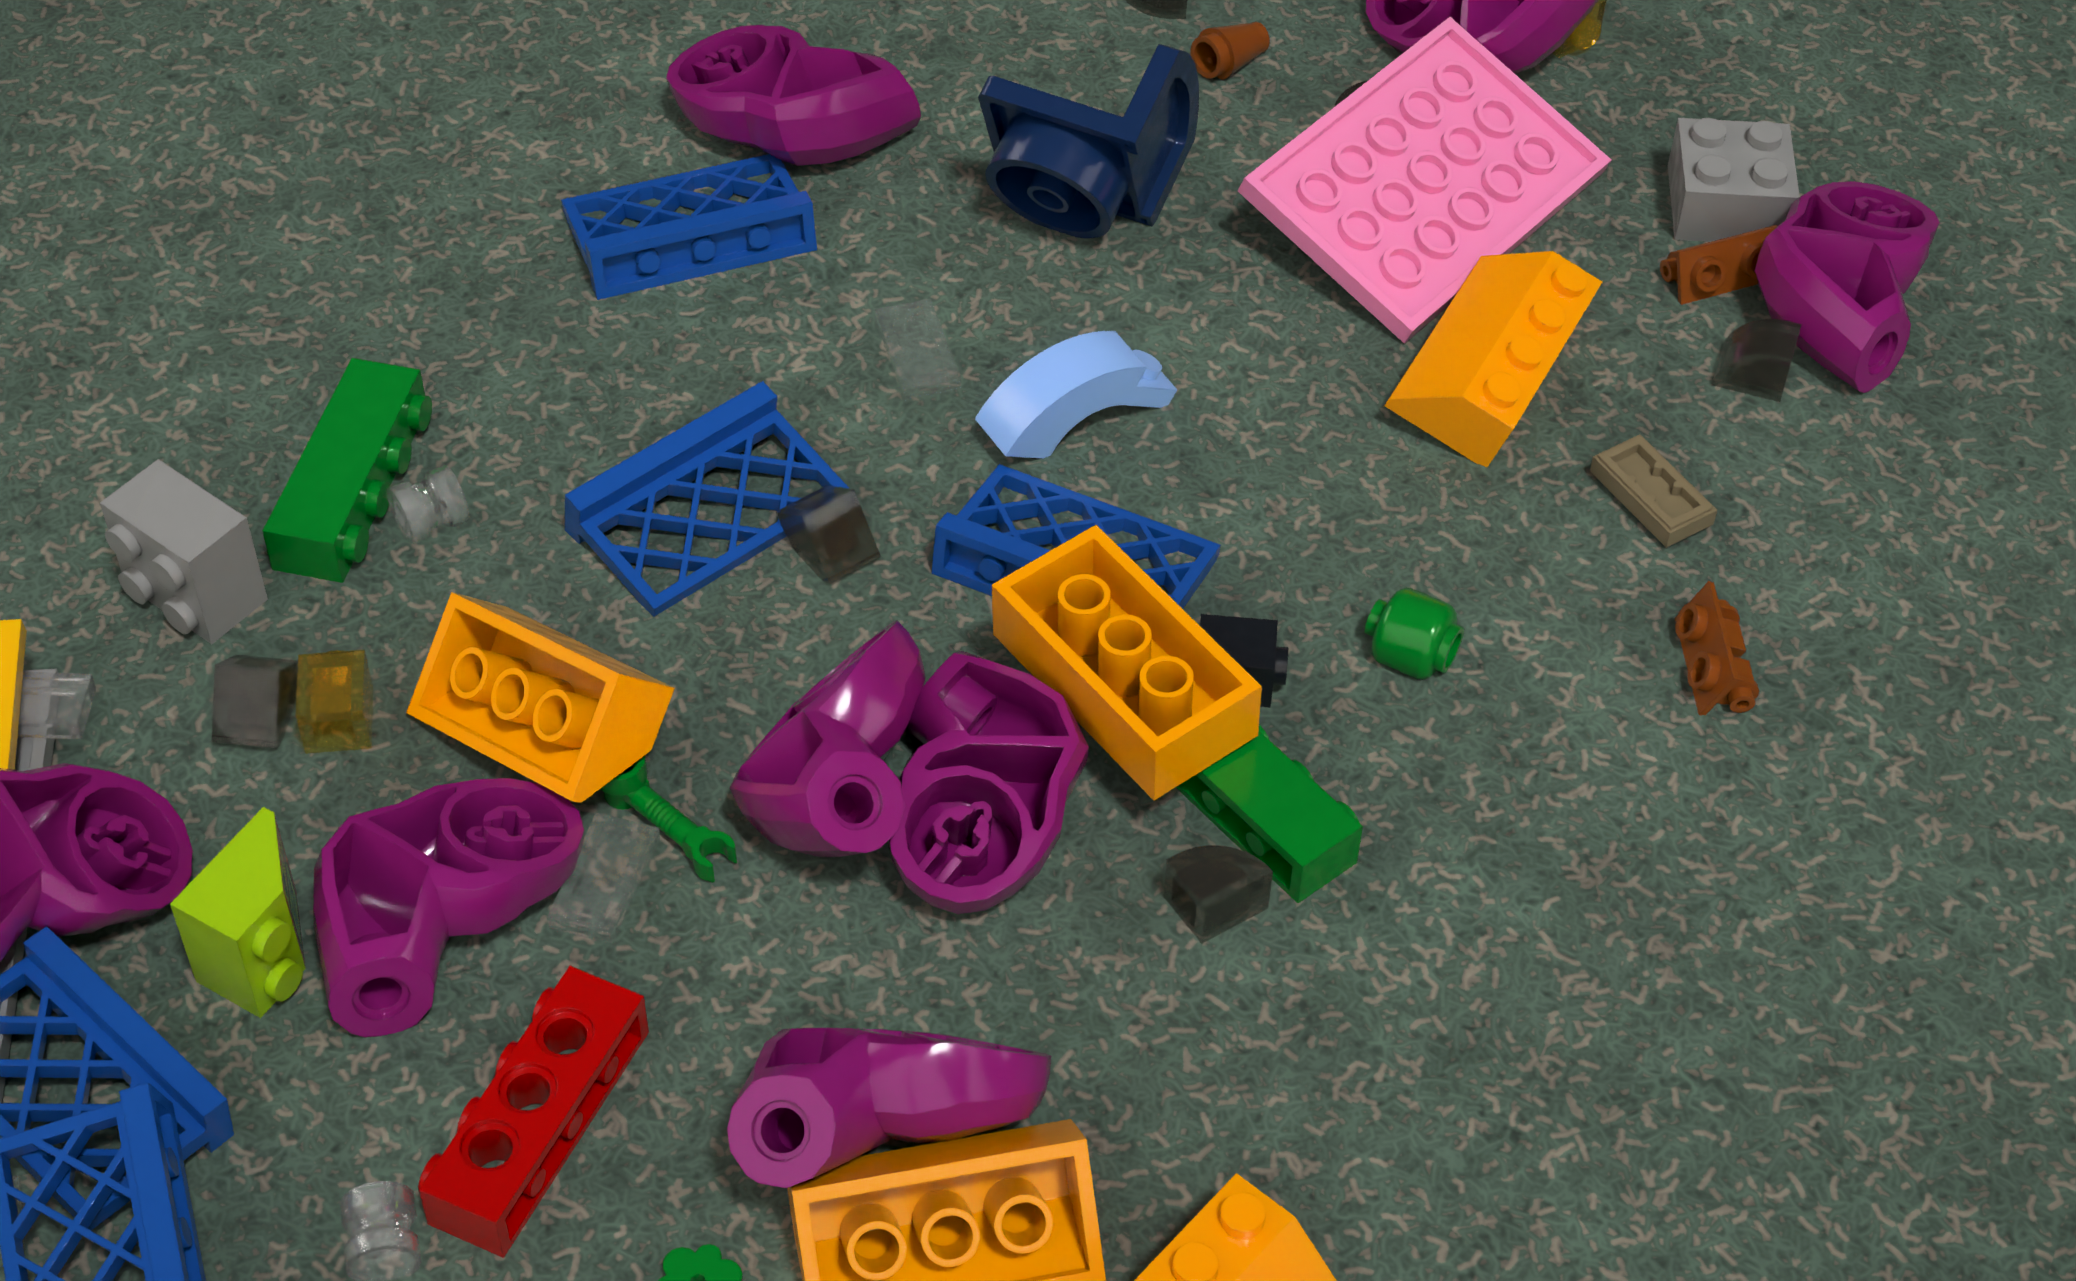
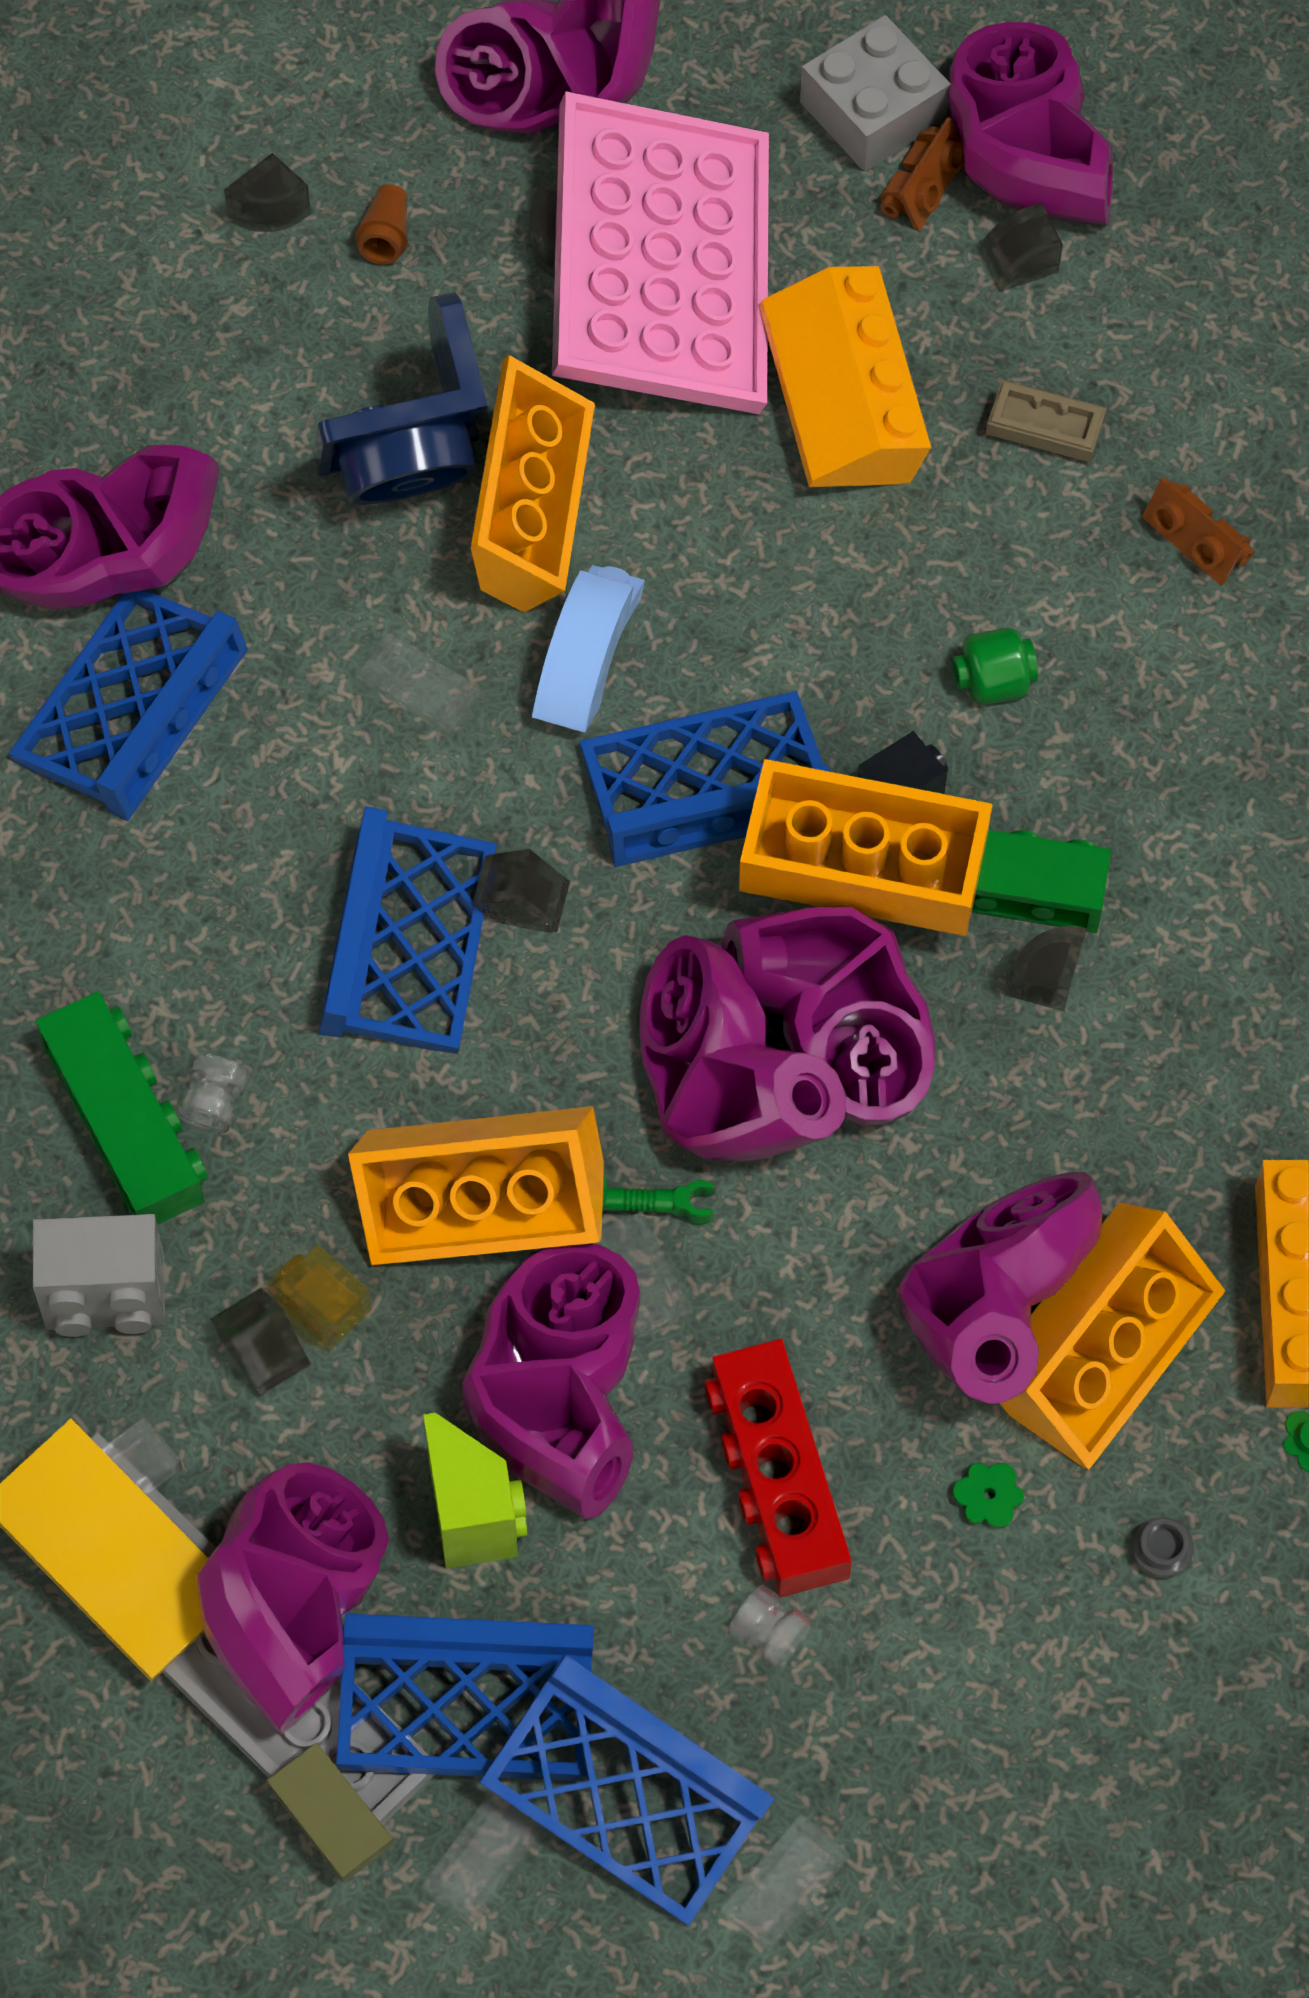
camera: 40 degrees left, 15 degrees up
(1135, 246) = (530, 487): none -> light orange slope

